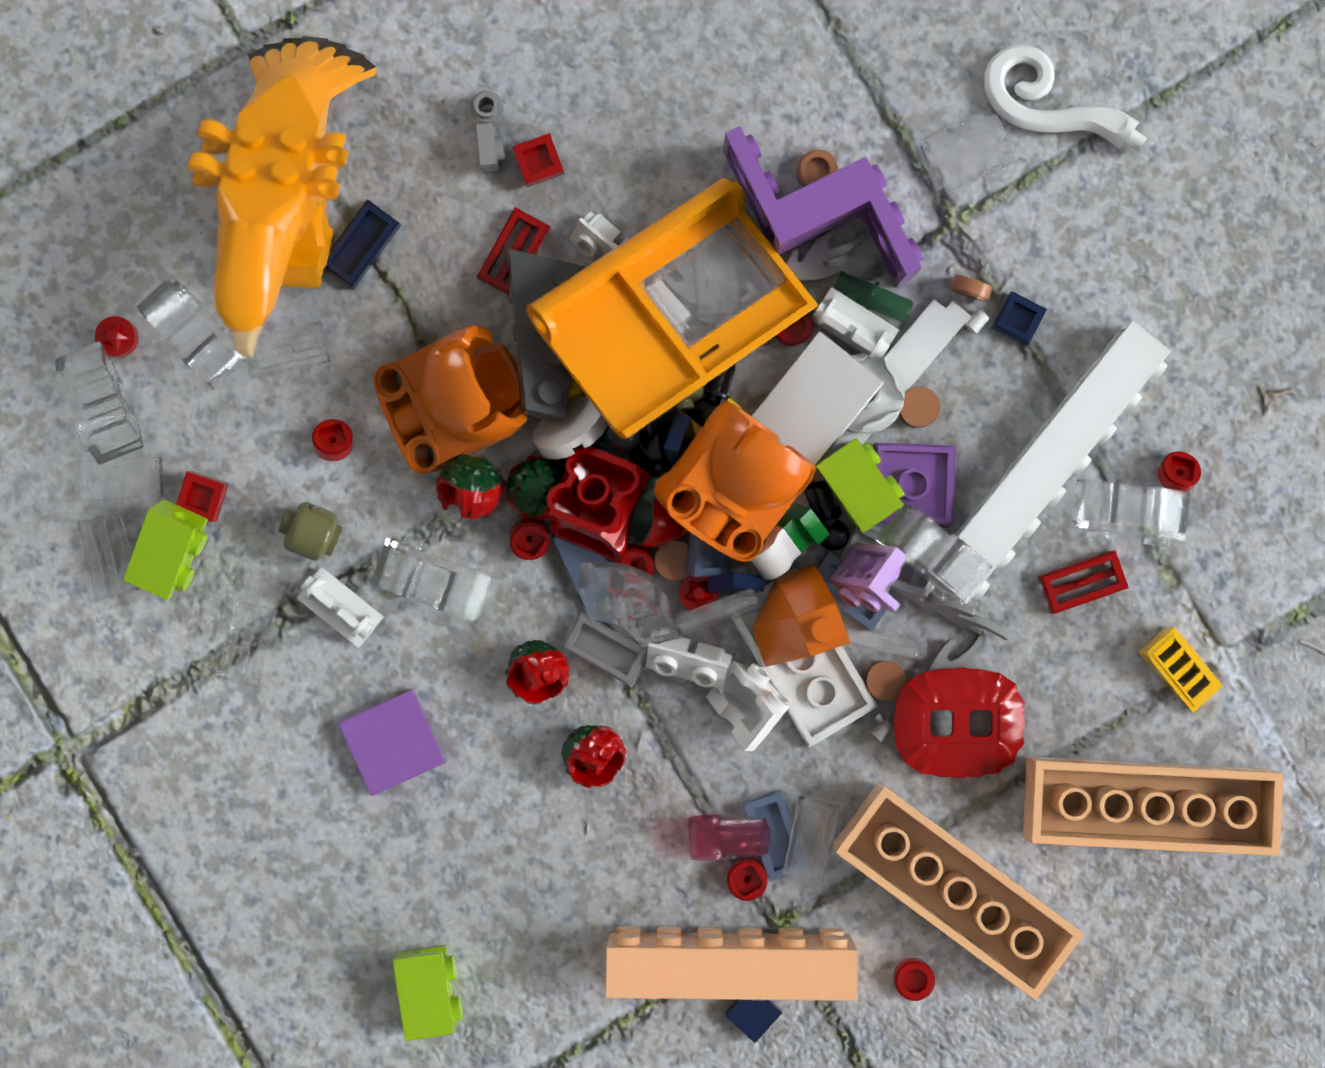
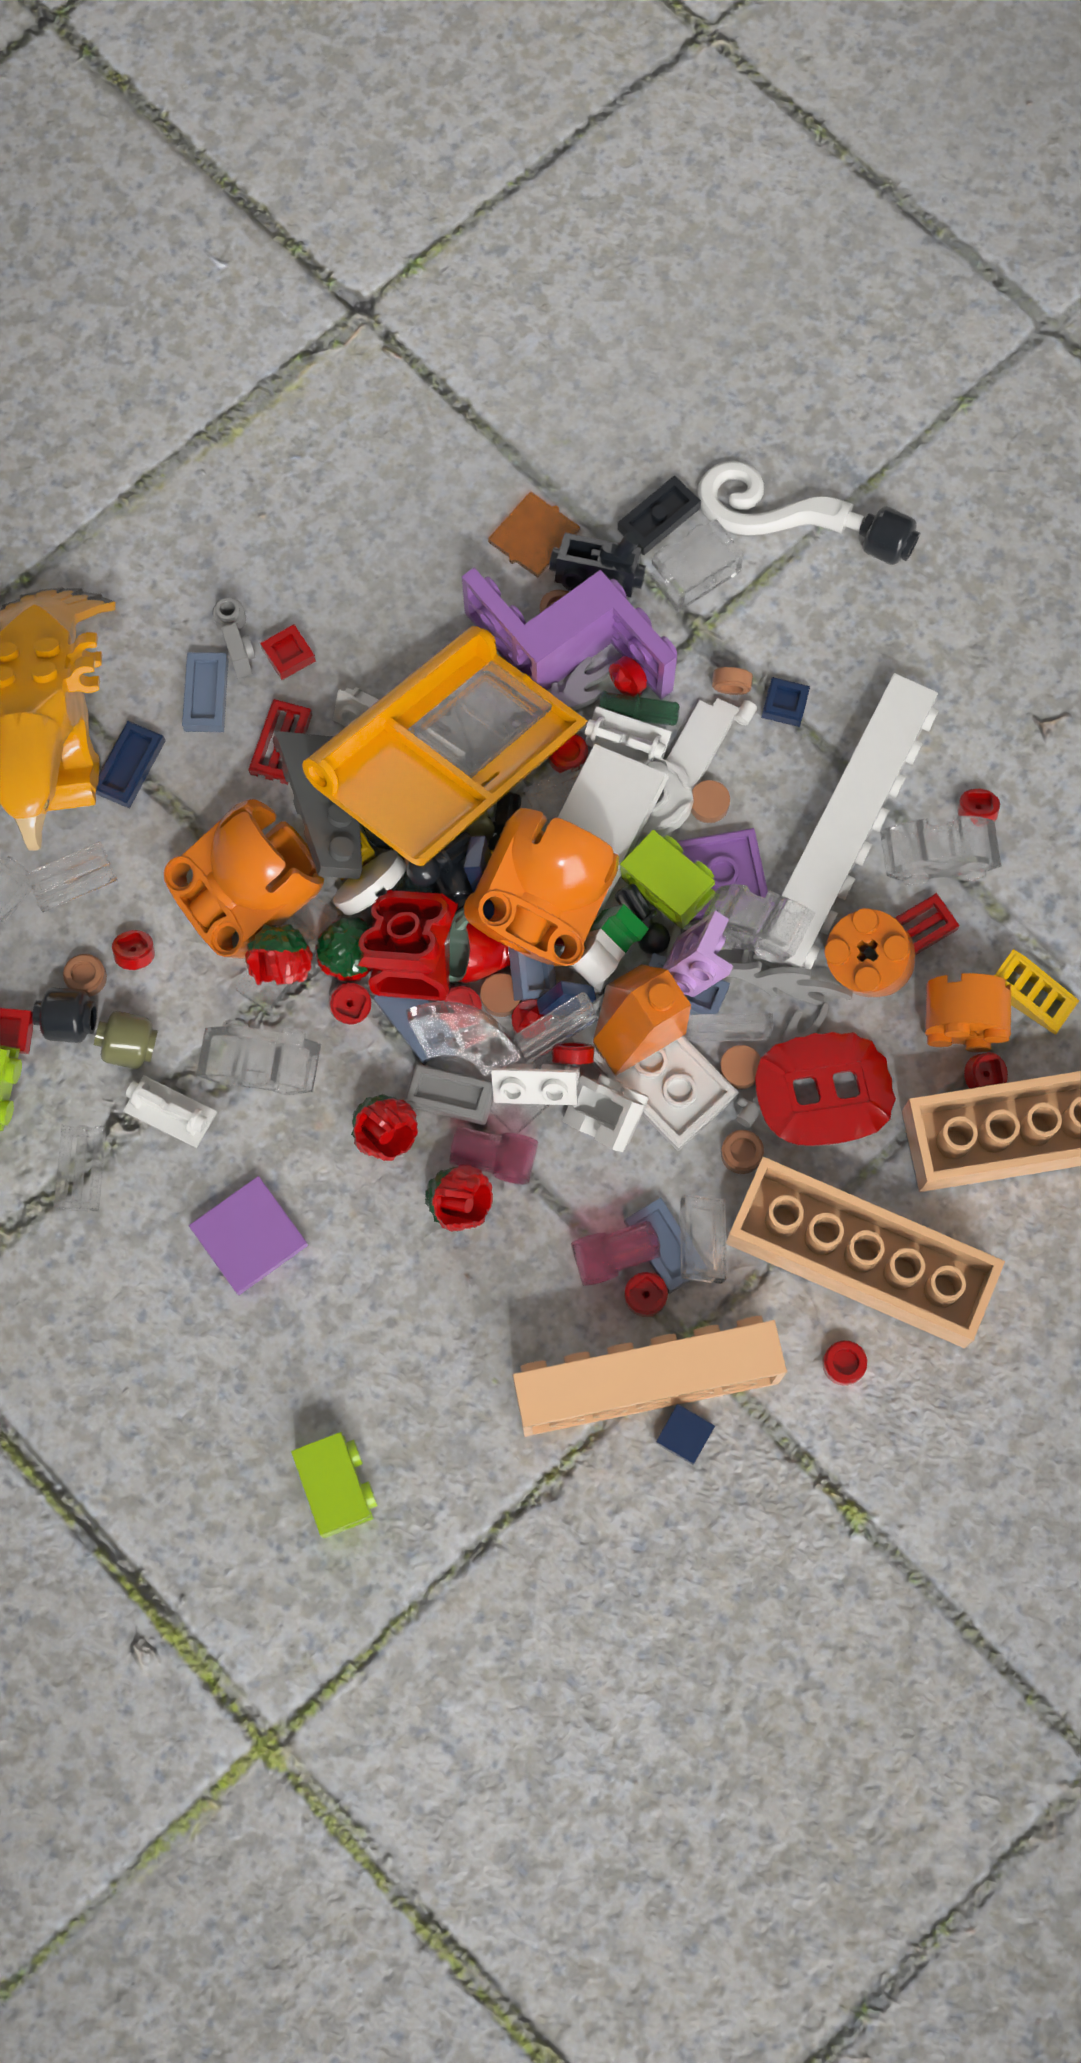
camera: 15 degrees left, 15 degrees down
(257, 493) = (65, 1015): none -> black head
(282, 453) = (85, 973): none -> nougat tile
(449, 183) = (205, 692): none -> sand blue tile
(643, 720) = (505, 1156): none -> clear pink piece
(729, 639) = (573, 1053): none -> red tile
(810, 80) = (531, 533): none -> clear orange piece
(863, 132) = (584, 556): none -> black brick
(867, 762) = (742, 1151): none -> nougat tile
(869, 261) = (628, 676): none -> red tile
(940, 90) = (660, 514): none -> black plate
(1028, 627) = (873, 930): none -> orange brick
(1113, 684) = (968, 1011): none -> orange brick
(1115, 739) = (985, 1070): none -> red tile
(1167, 164) = (889, 535): none -> black head

